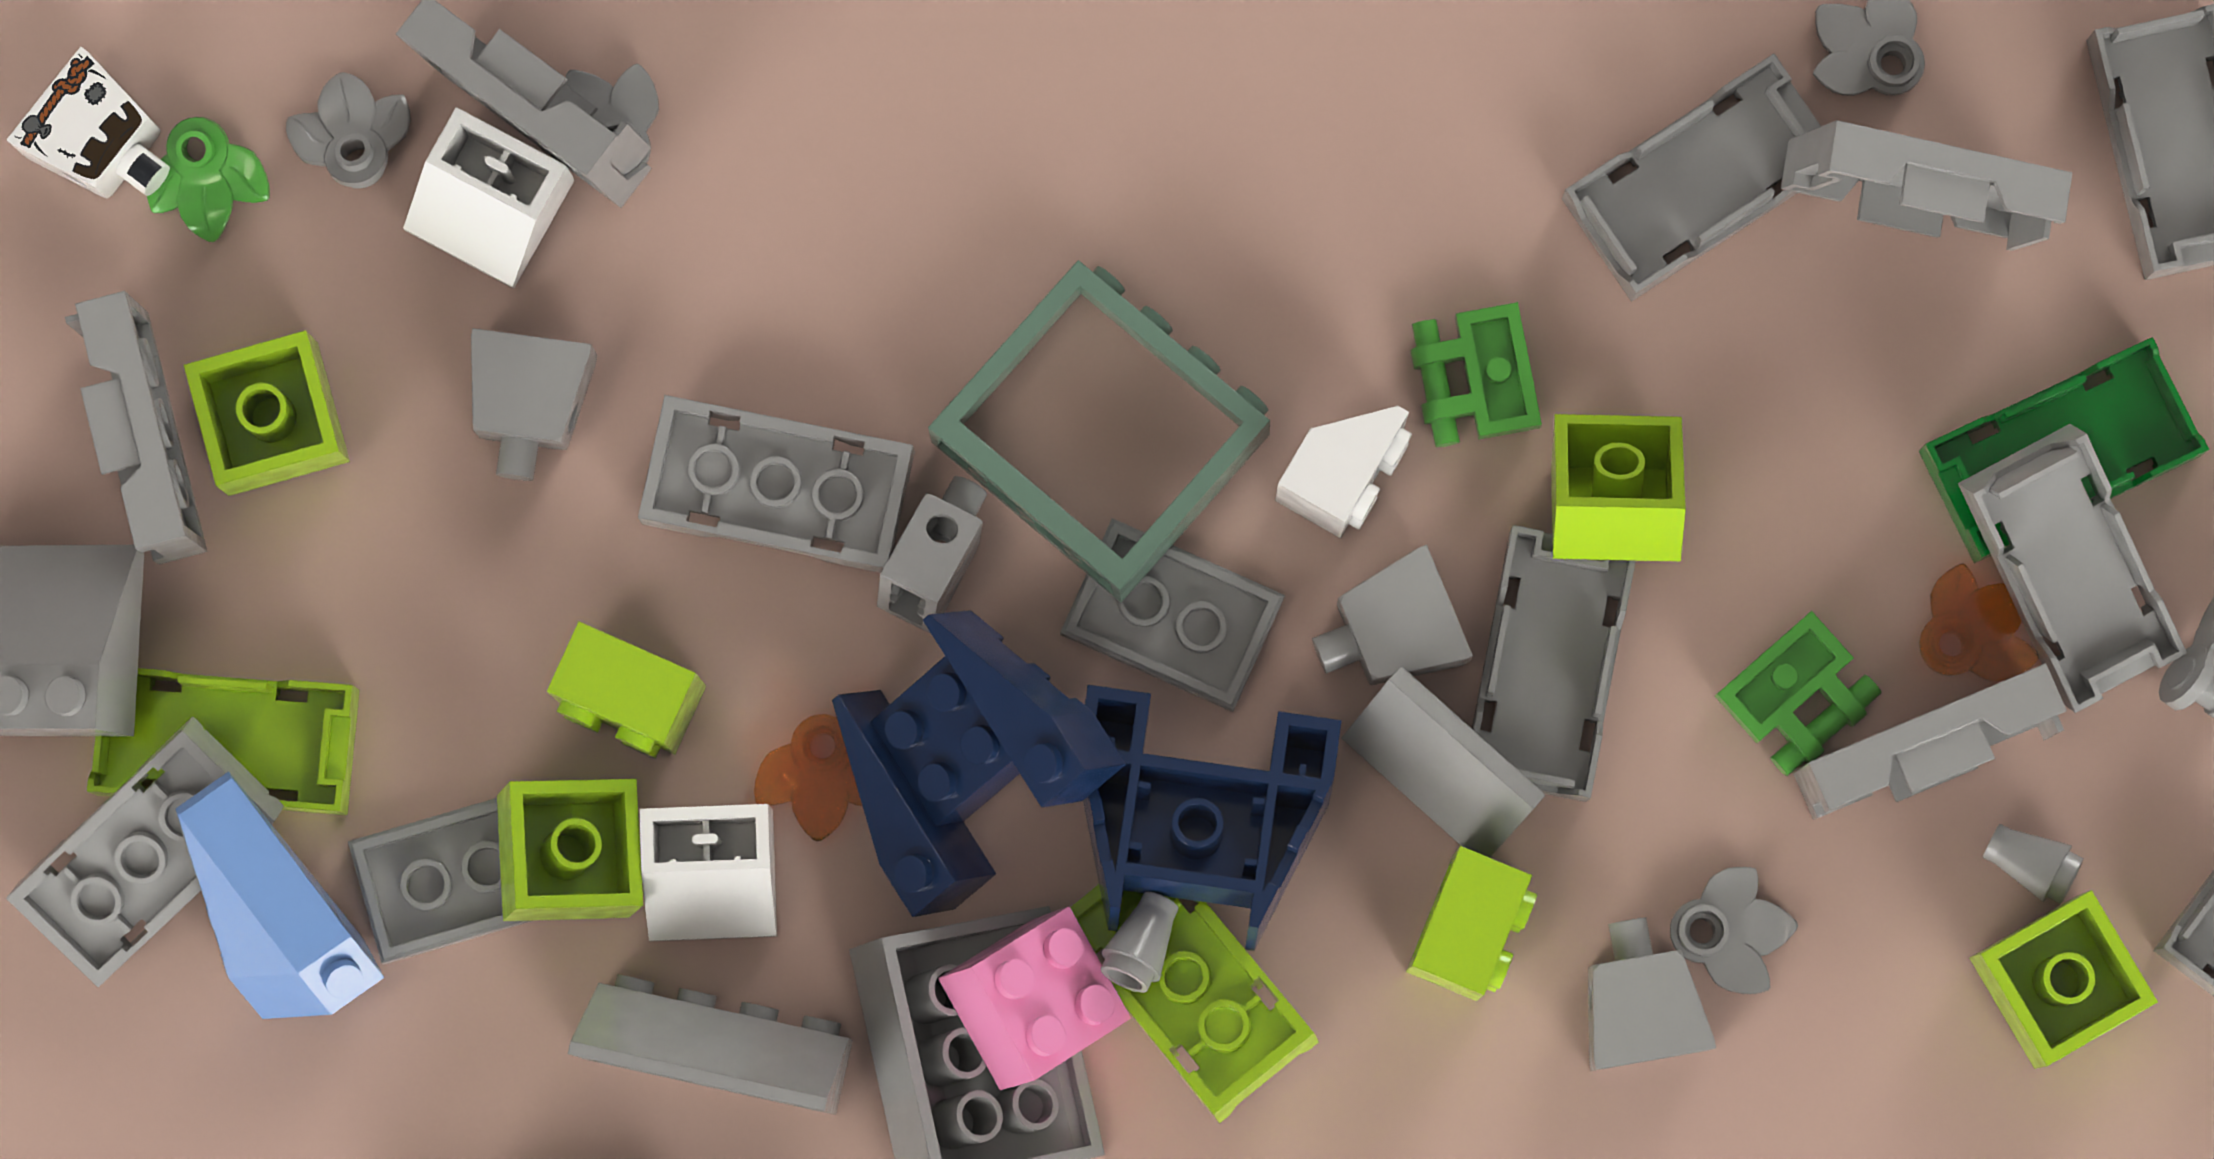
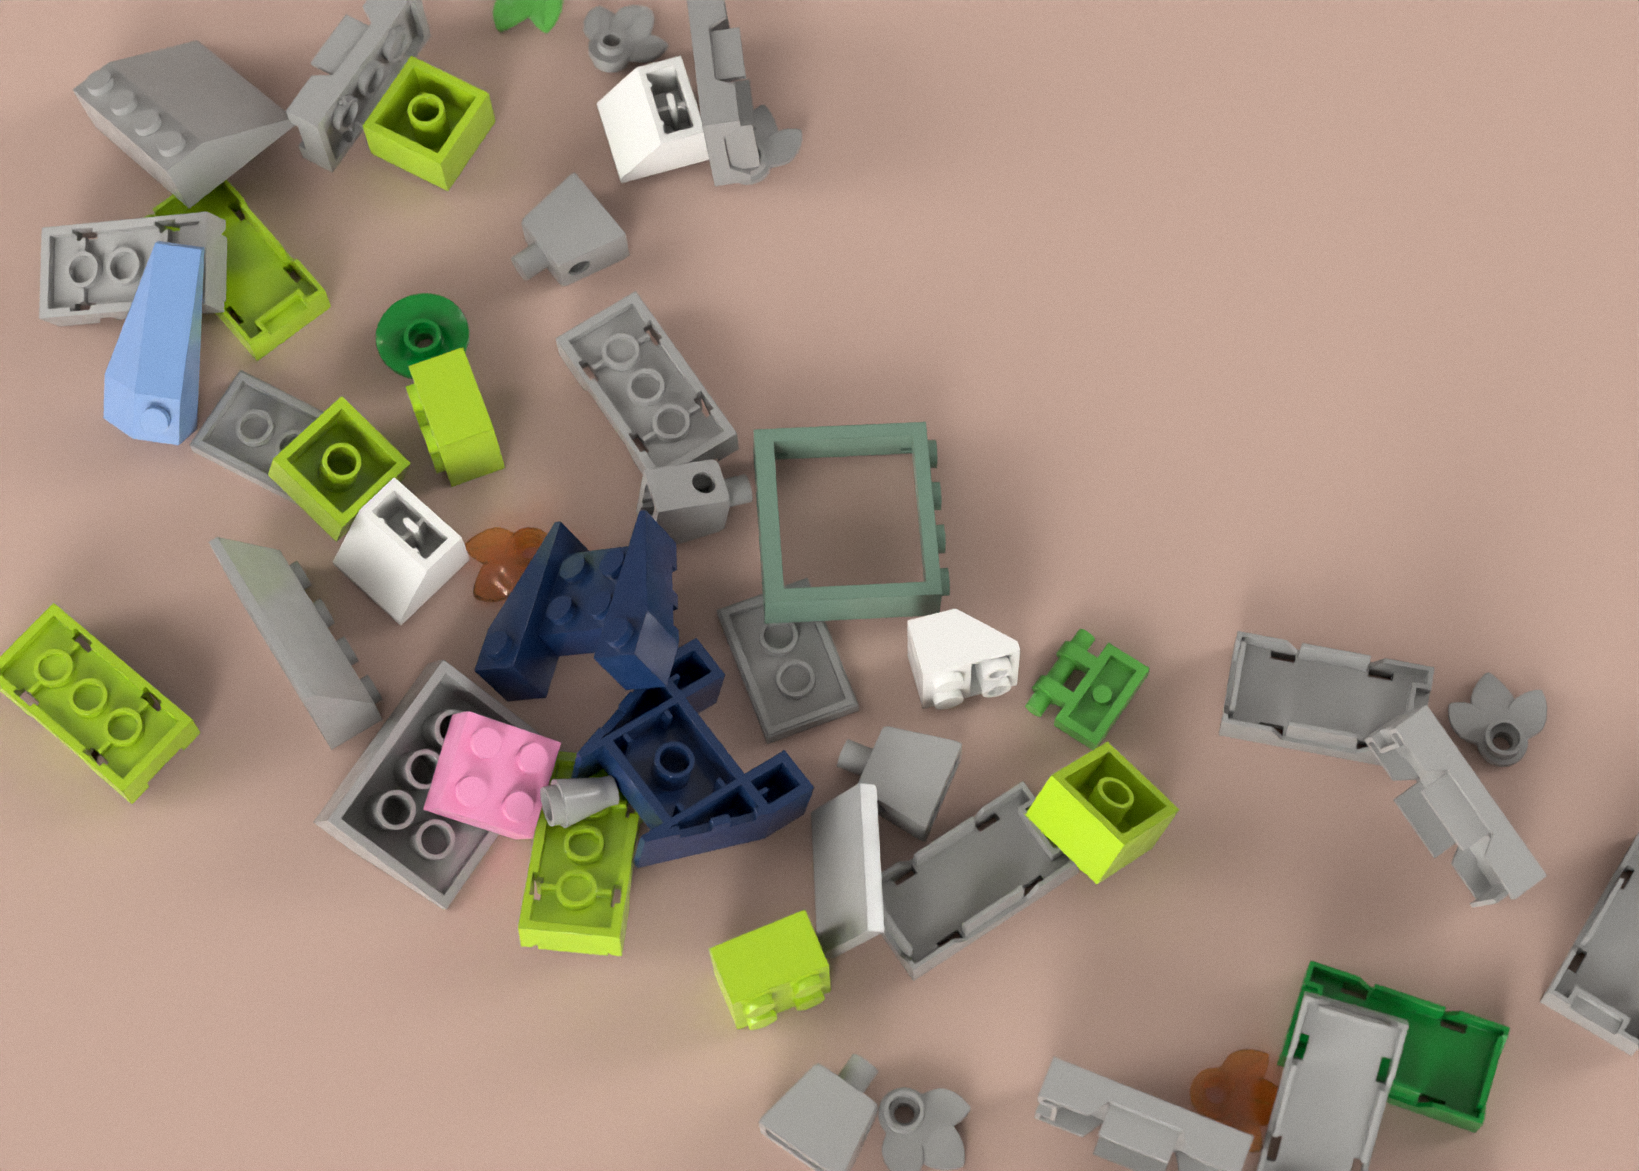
camera: 45 degrees right, 15 degrees down
(469, 616) = (418, 319): none -> green dish
(1784, 679) = (1098, 1017): bright green plate -> none

